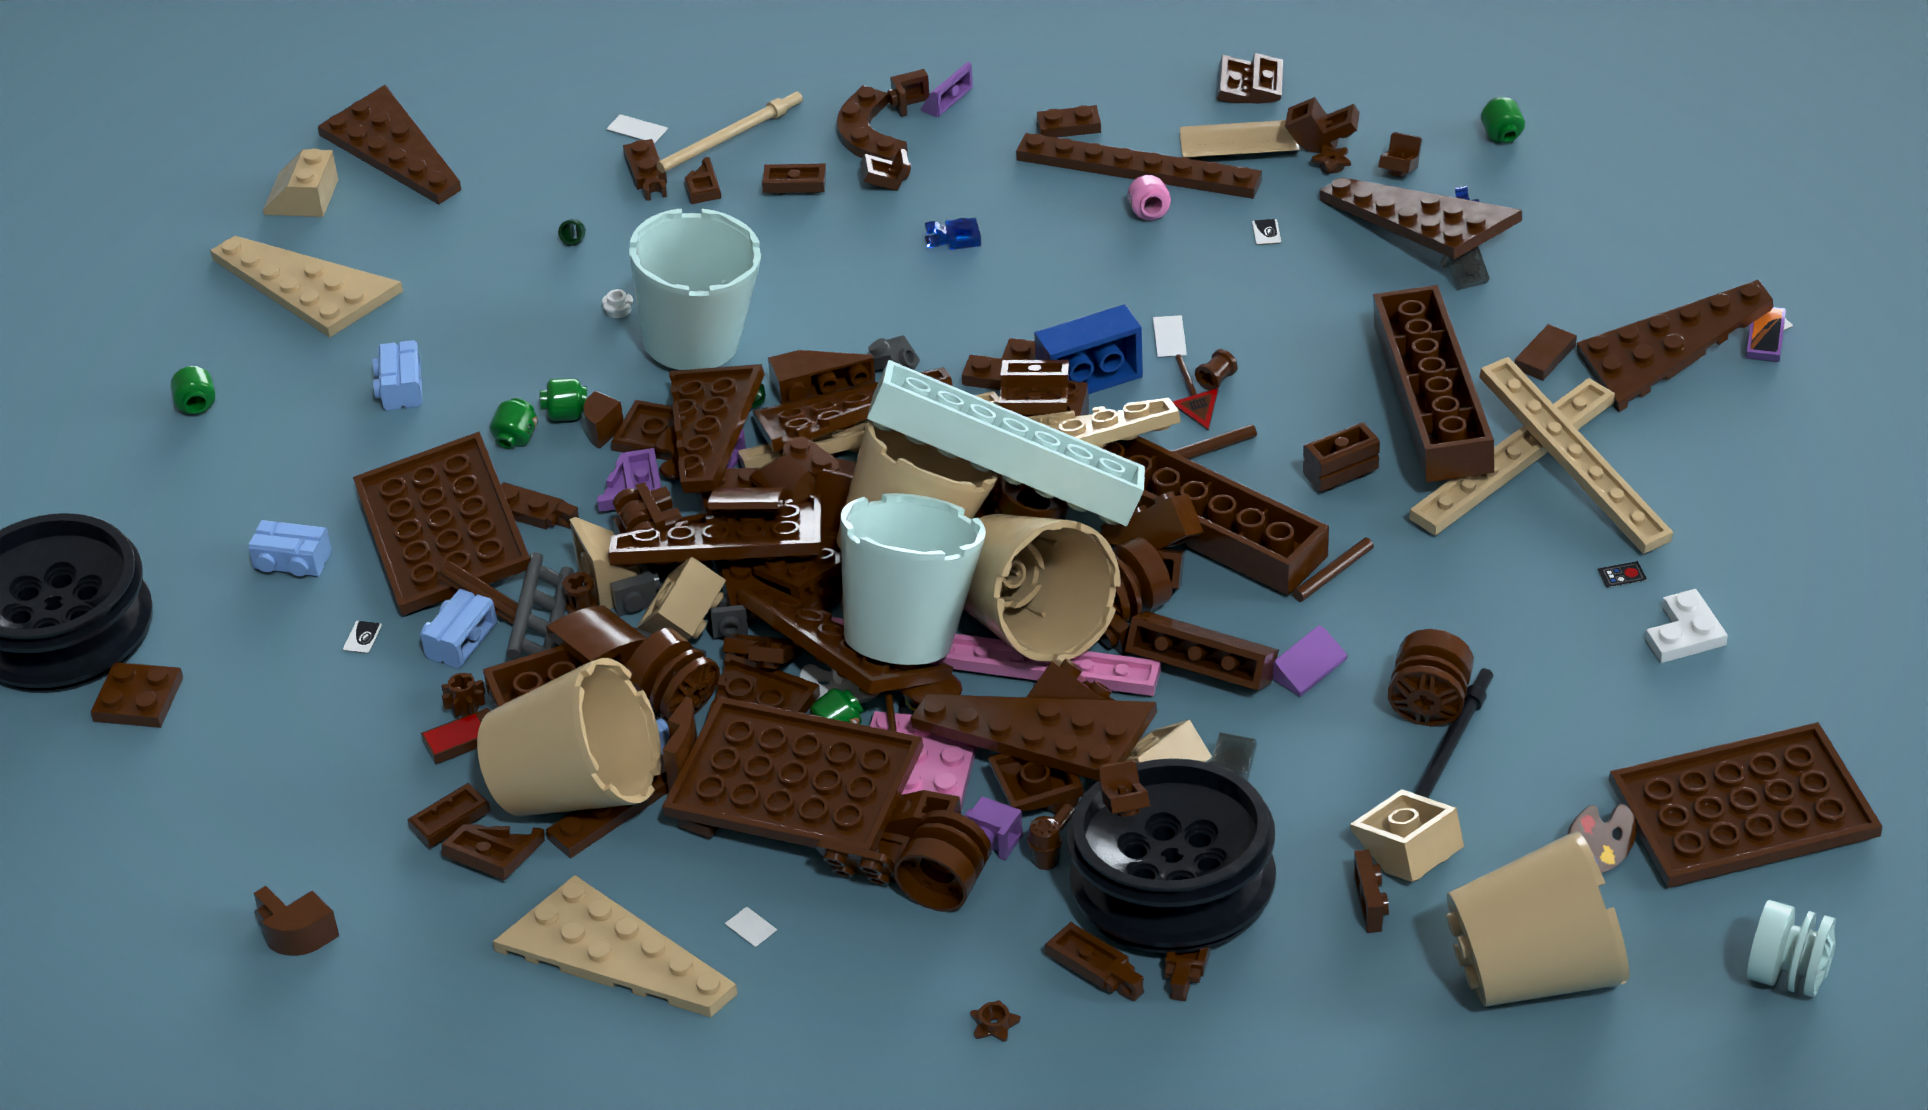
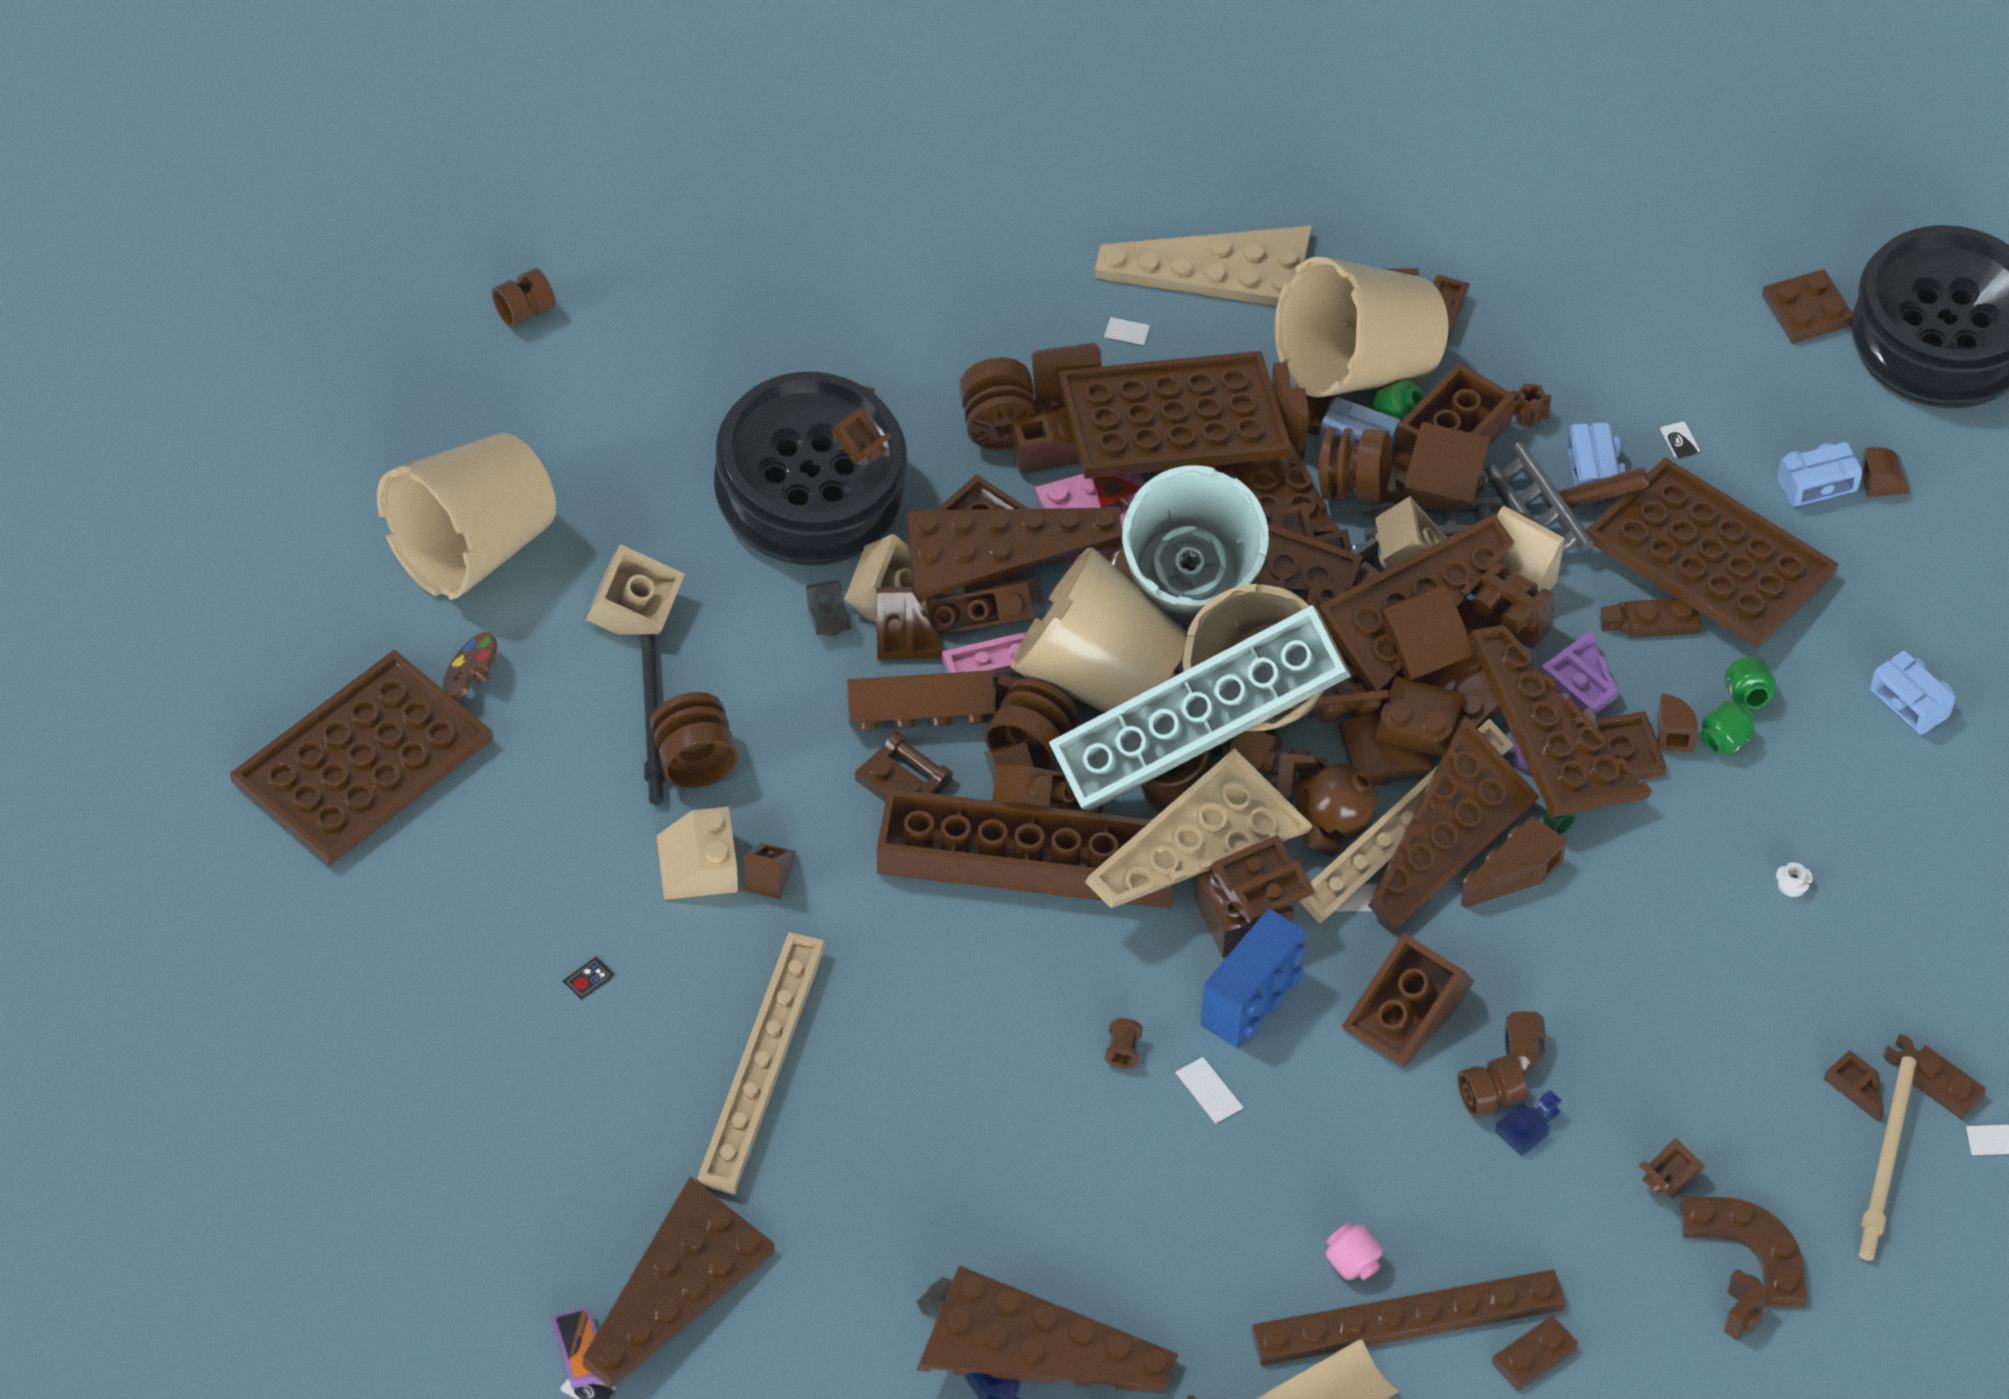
camera: 145 degrees right, 10 degrees up
(236, 533) = (1883, 472): none -> reddish brown brick
(296, 927) = (1475, 168): reddish brown brick -> none
(453, 737) = (1509, 370): red tile -> none
(567, 231) = (1925, 949): dark green hinge -> none
(693, 285) = (1682, 822): light aqua cone -> none
(794, 178) = (1760, 1121): reddish brown plate -> none
(895, 350) = (1461, 920): dark grey bracket -> none
(916, 271) = (1525, 1038): none -> reddish brown rock
(949, 91) = (1705, 1334): medium lavender slope -> none
(955, 247) = (1497, 1084): none -> reddish brown wheel
(973, 320) = (1407, 1000): none -> reddish brown slope
(986, 371) = (1335, 963): reddish brown plate -> none
(994, 1011) = (877, 325): reddish brown plate -> none
(1000, 824) = (991, 466): medium lavender brick -> none
(1045, 837) = (932, 469): reddish brown piece -> none
(1179, 707) = (904, 626): none -> reddish brown wing
(1197, 406) = (1122, 1005): piece -> none
(1217, 442) = (1073, 957): reddish brown bar -> none
(1262, 611) = (884, 773): none -> reddish brown plate
(1266, 231) = (1204, 1285): sticker -> none
(1308, 661) = (823, 747): medium lavender slope -> none
(1333, 569) = (862, 862): reddish brown bar -> none
(1341, 457) = (924, 966): reddish brown brick -> none
(1367, 882) = (637, 536): reddish brown plate -> none
(1421, 579) = (767, 869): none -> reddish brown slope
(1433, 384) = (884, 1085): reddish brown brick -> none
(1477, 609) = (698, 855): none -> tan slope
(1545, 352) = (803, 1226): reddish brown tile -> none
(1576, 455) = (697, 1064): tan plate -> none
(1691, 630) = (490, 934): white plate -> none
(1791, 948) = (259, 606): light aqua wheel -> none

